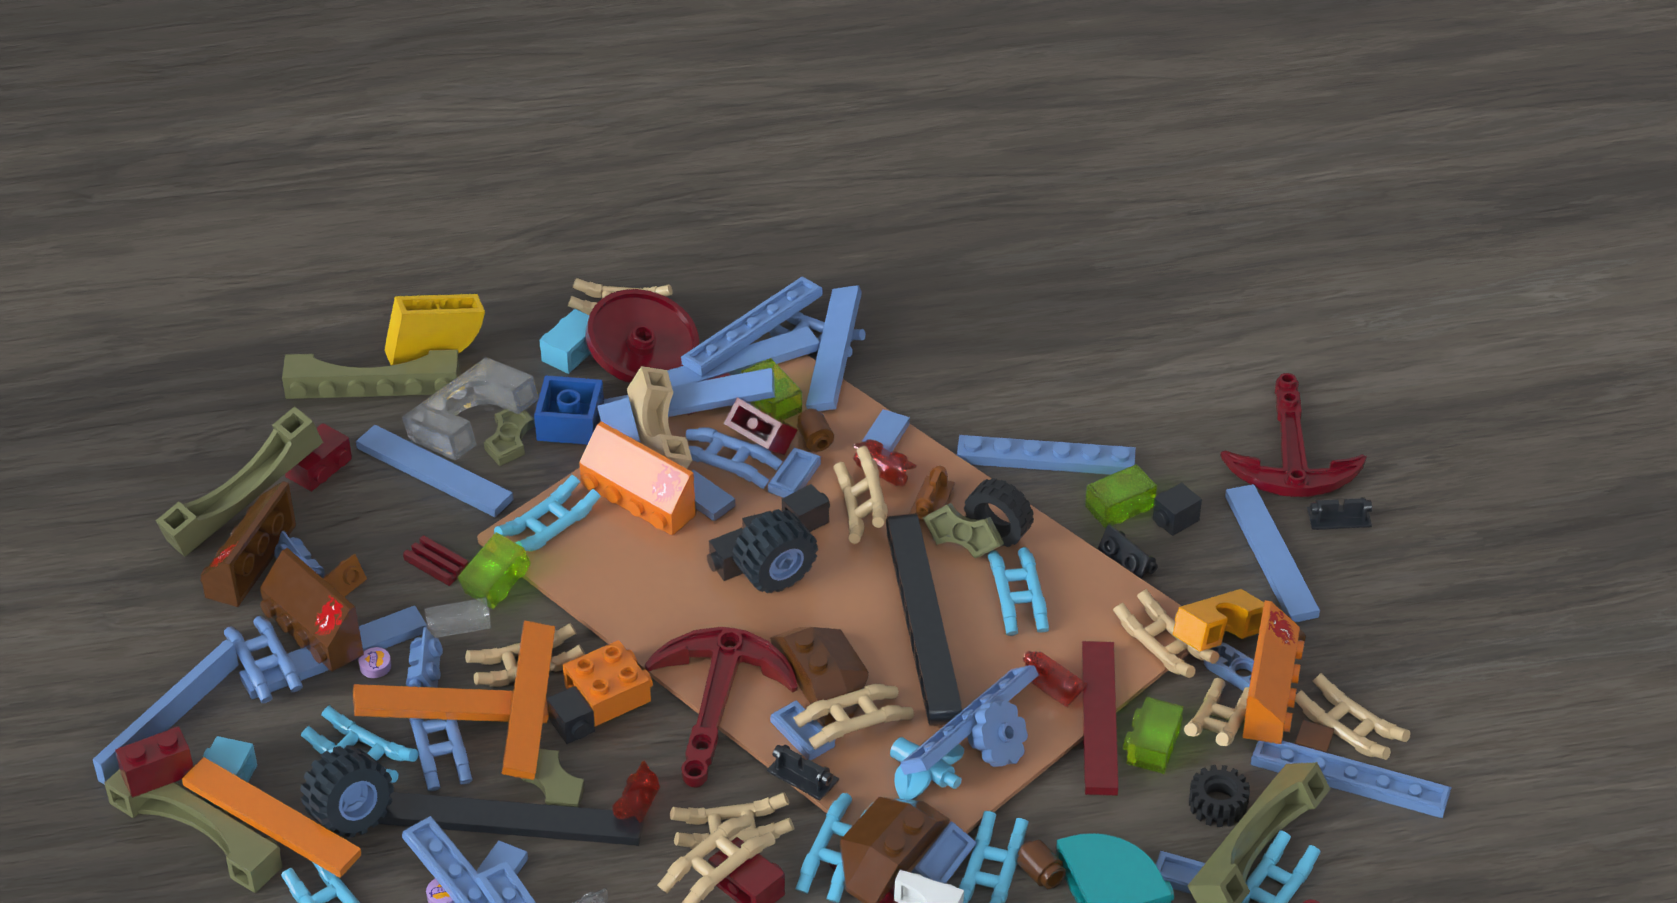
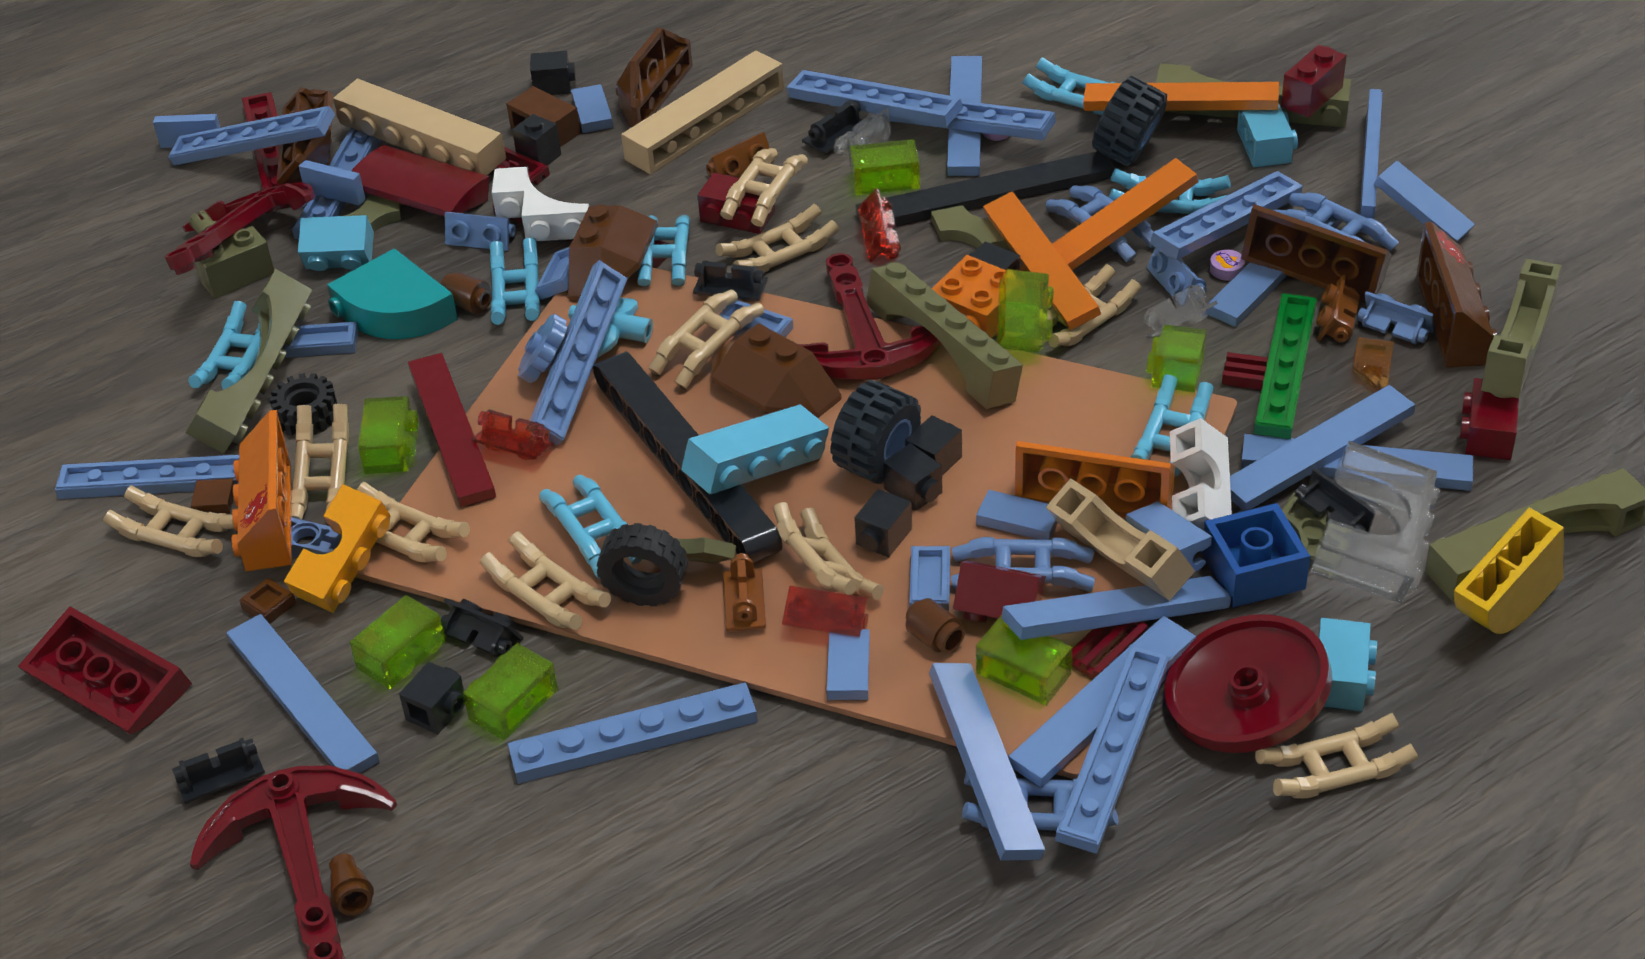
camera: 160 degrees right, 0 degrees up
(178, 640) = (1423, 201): none -> medium blue tile
(340, 680) = (1223, 215): none -> medium blue plate
(349, 538) = (1373, 361): none -> clear orange slope
(417, 548) = (1285, 366): none -> green tile
(455, 475) = (1318, 447): none -> medium blue tile
(486, 430) = (1325, 495): none -> black hinge
(562, 460) = (1204, 460): none -> white arch
(585, 867) = (885, 167): none -> clear neon green brick
(589, 626) = (1024, 310): none -> clear neon green brick
(661, 653) = (987, 368): none -> olive arch
(871, 571) = (754, 448): none -> medium azure brick
(1072, 540) = (542, 568): none -> tan piece
(1191, 556) = (397, 641): none -> clear neon green brick
(1263, 413) = (350, 888): none -> reddish brown cone
(1416, 612) = (105, 672): none -> dark red slope

